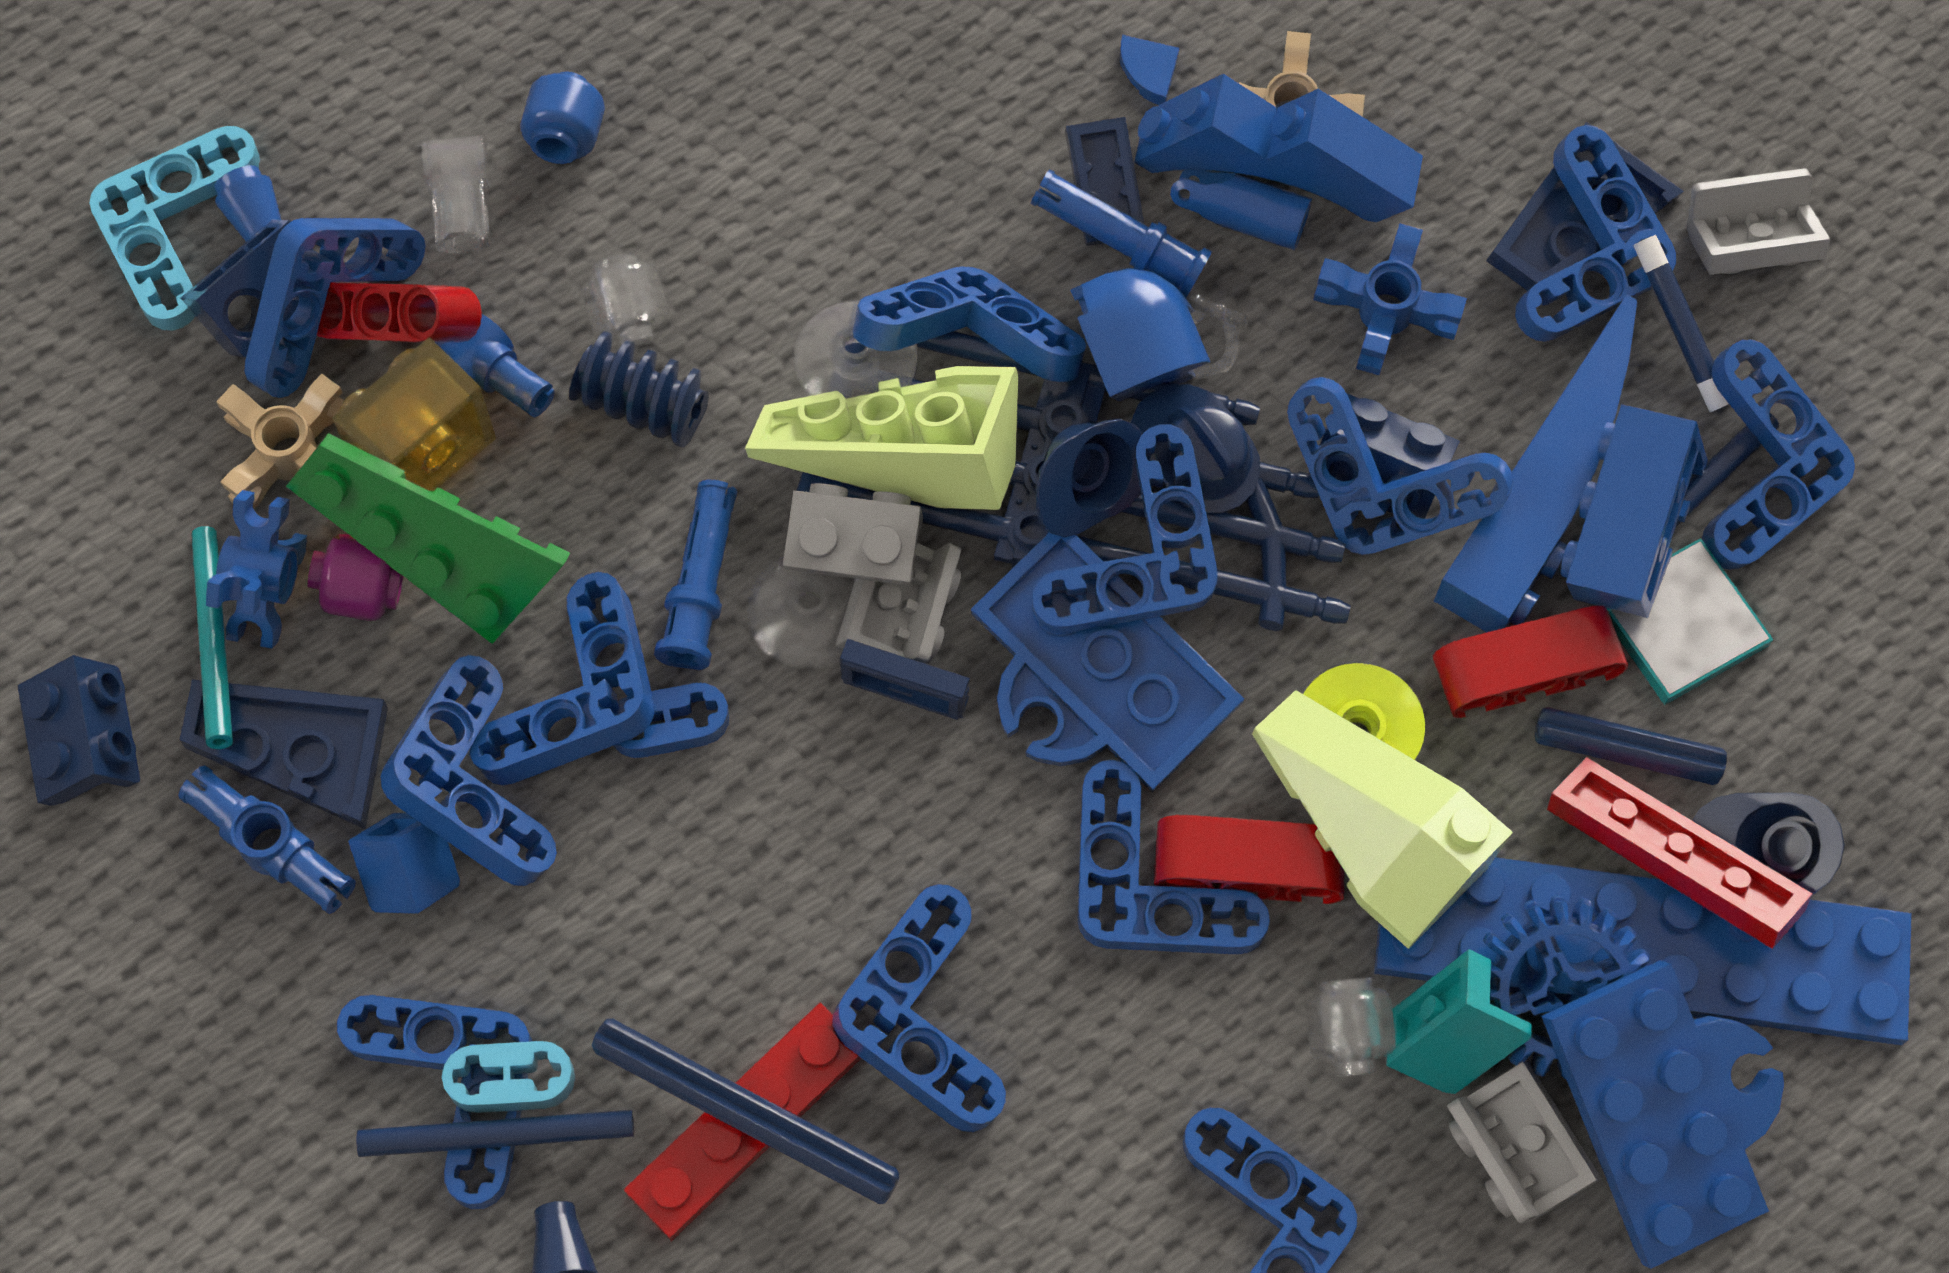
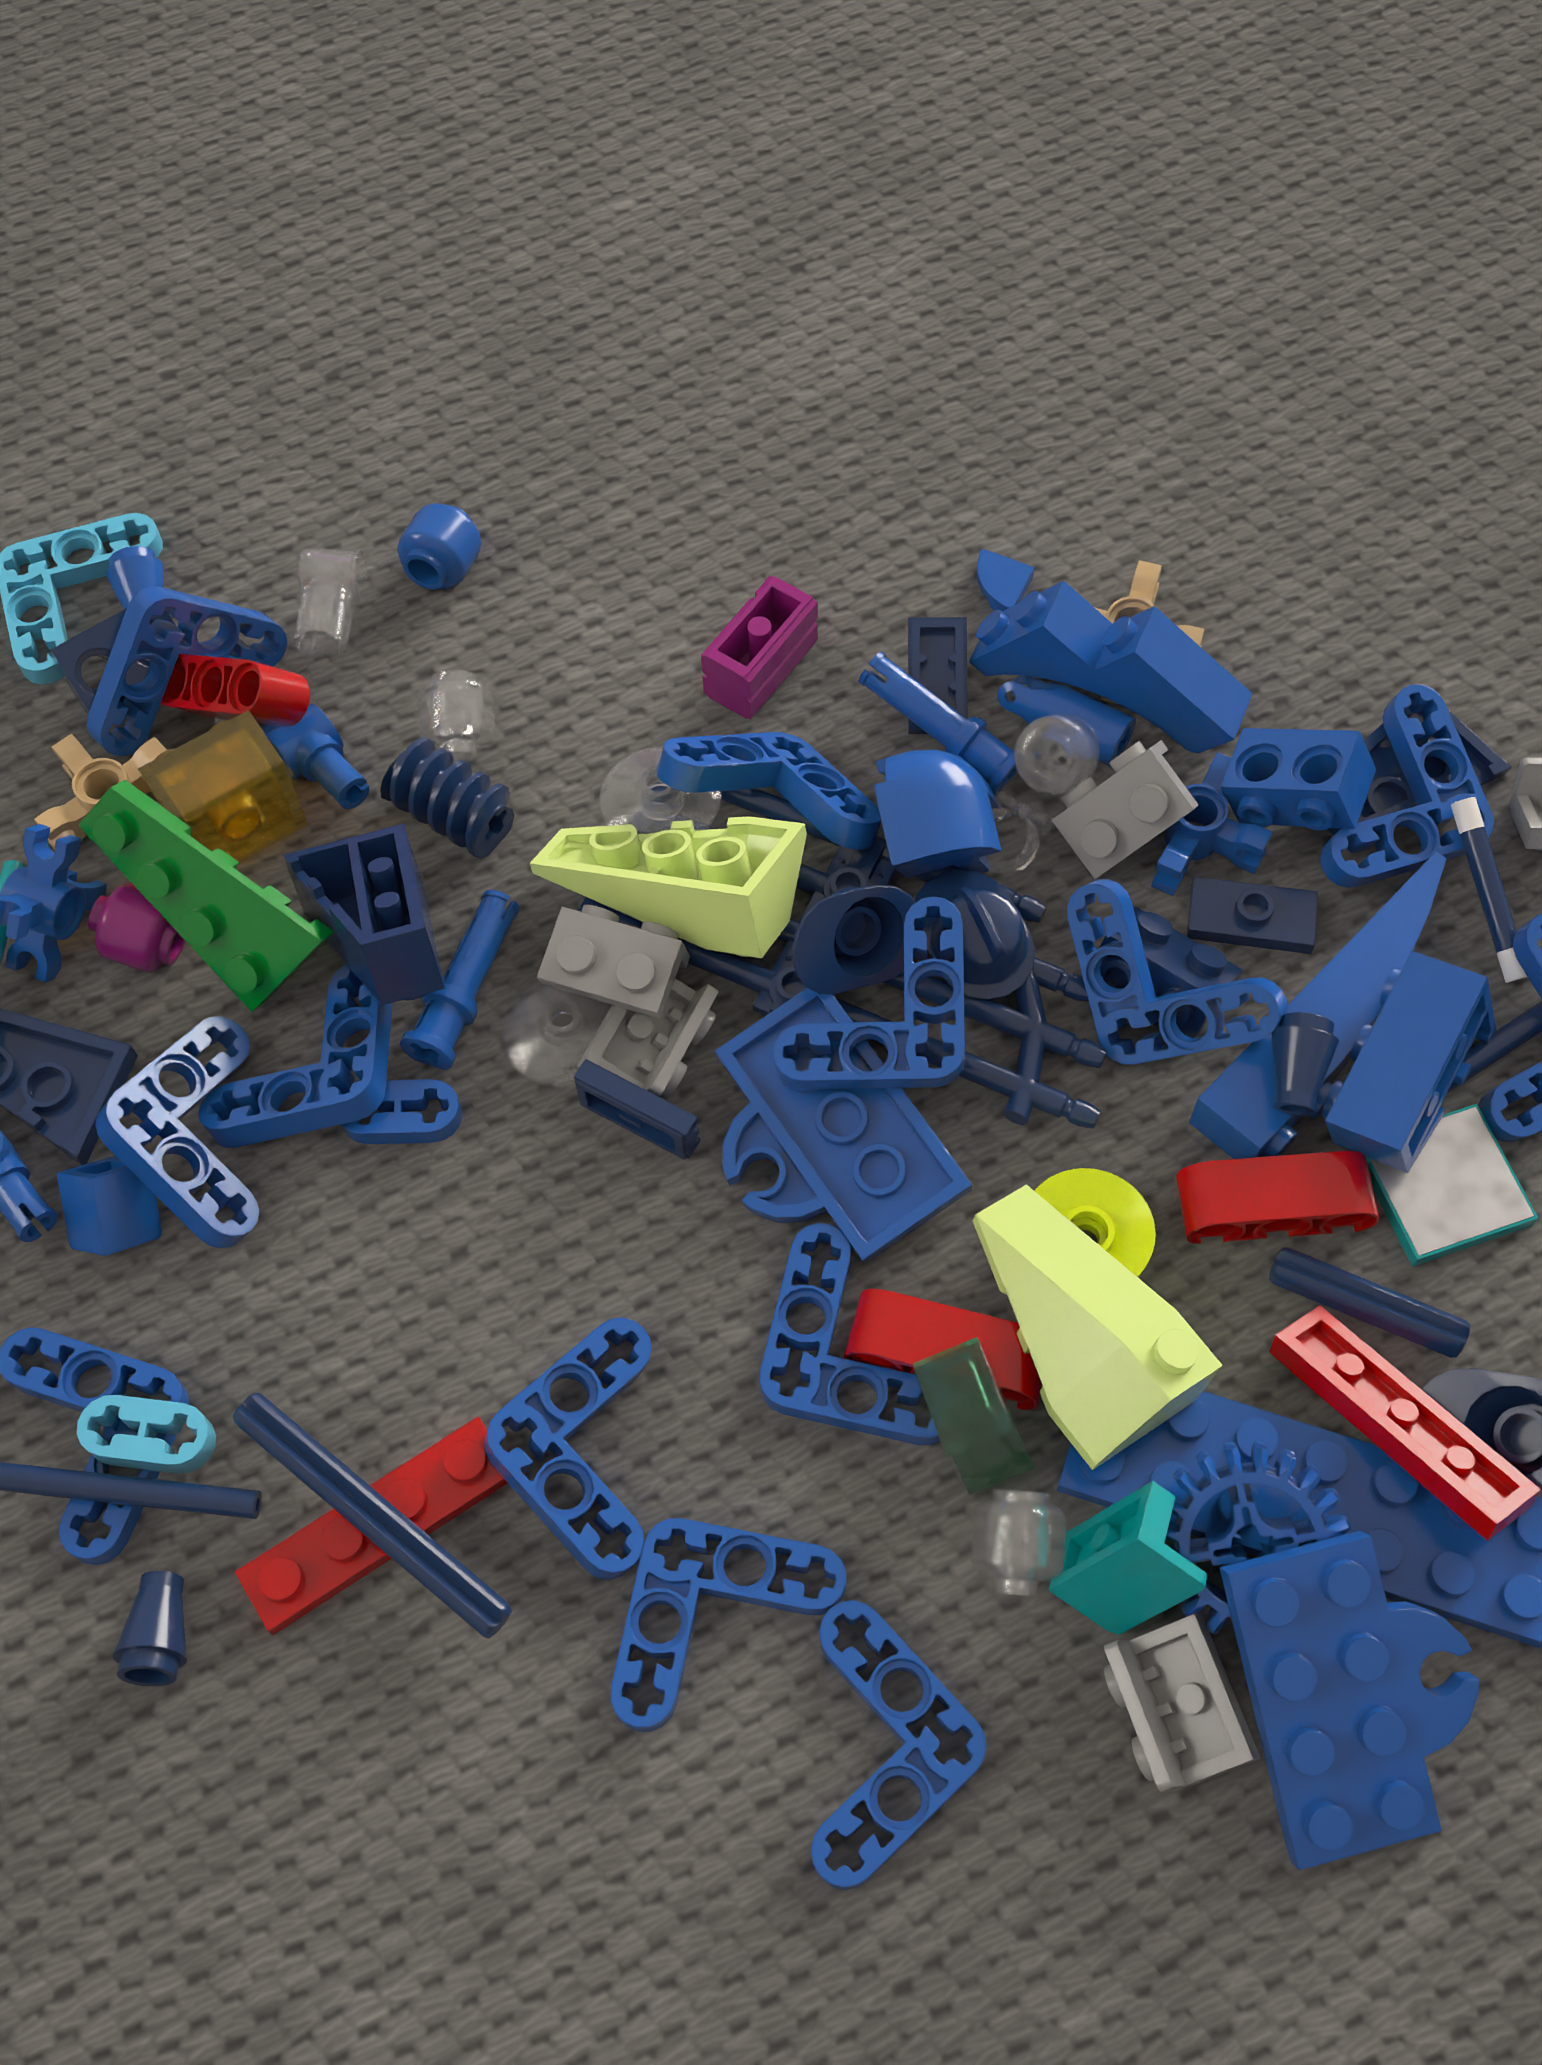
camera: 15 degrees right, 5 degrees down
(602, 515) = (377, 908): none -> dark blue wedge
(922, 180) = (760, 647): none -> magenta brick
(1049, 1127) = (682, 1591): none -> blue beam
(1229, 265) = (1039, 764): none -> clear head
(1289, 918) = (972, 1416): none -> clear green slope
(1318, 296) = (1125, 810): none -> light grey bracket
(1459, 383) = (1252, 915): none -> dark blue plate
(1482, 231) = (1299, 778): none -> blue brick
(1534, 528) = (1301, 1059): none -> dark blue cone

